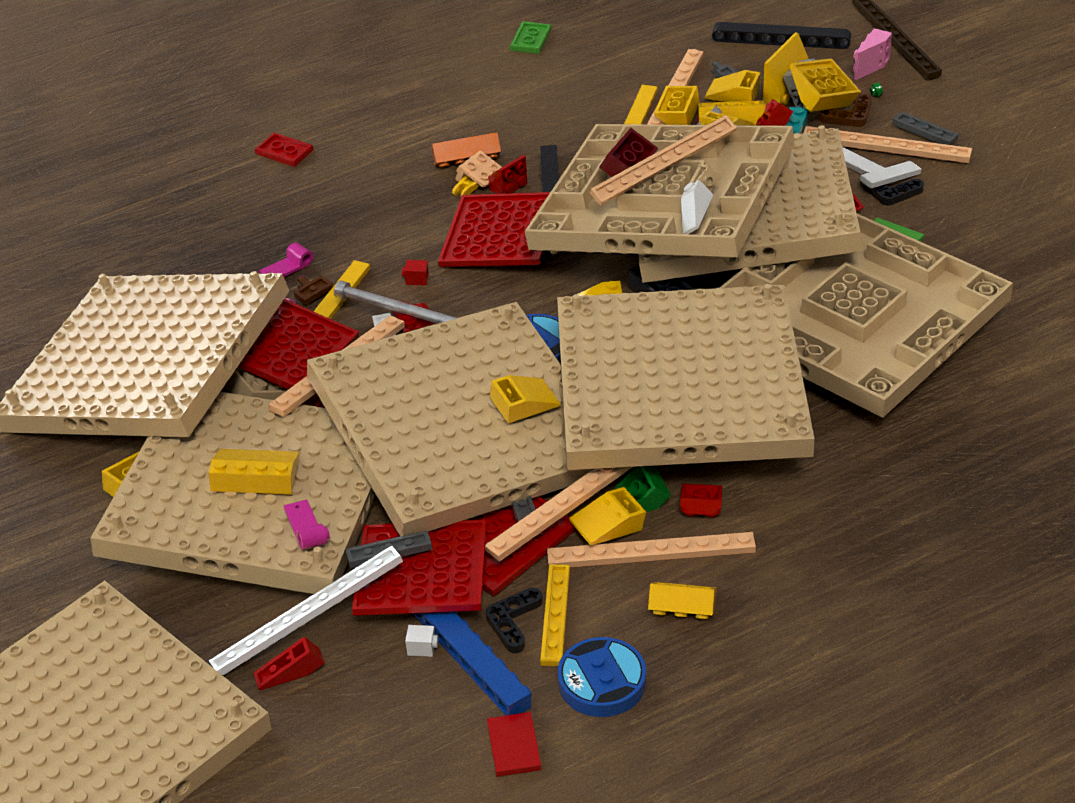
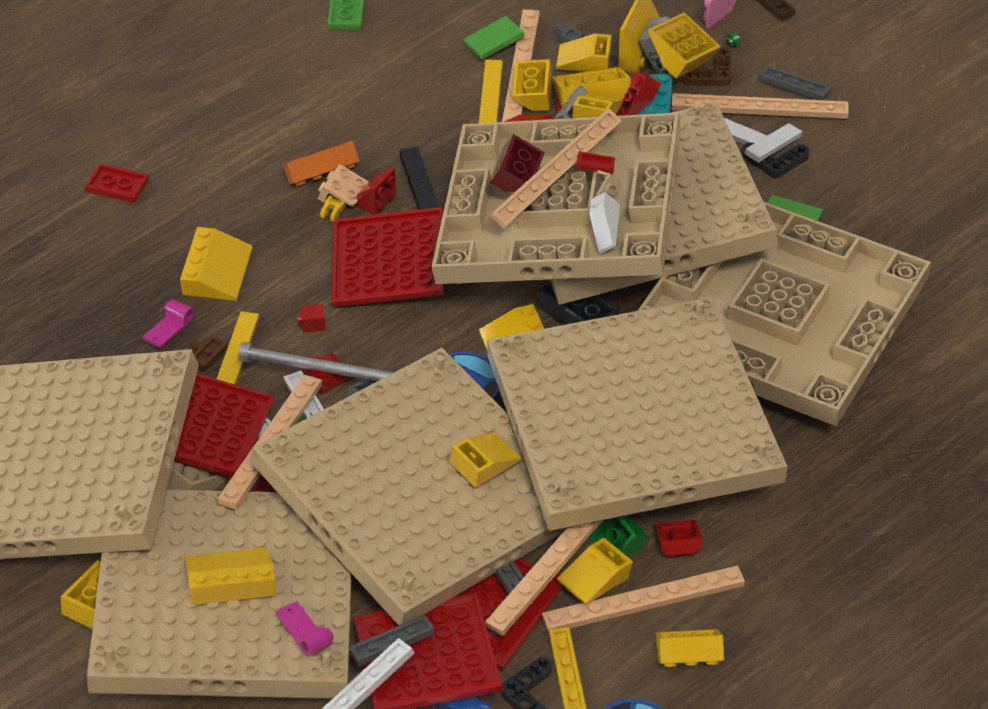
camera: 15 degrees left, 5 degrees up
(344, 220) = (215, 265): none -> yellow slope
(654, 68) = (493, 37): none -> bright green tile
(699, 157) = (595, 162): none -> red tile

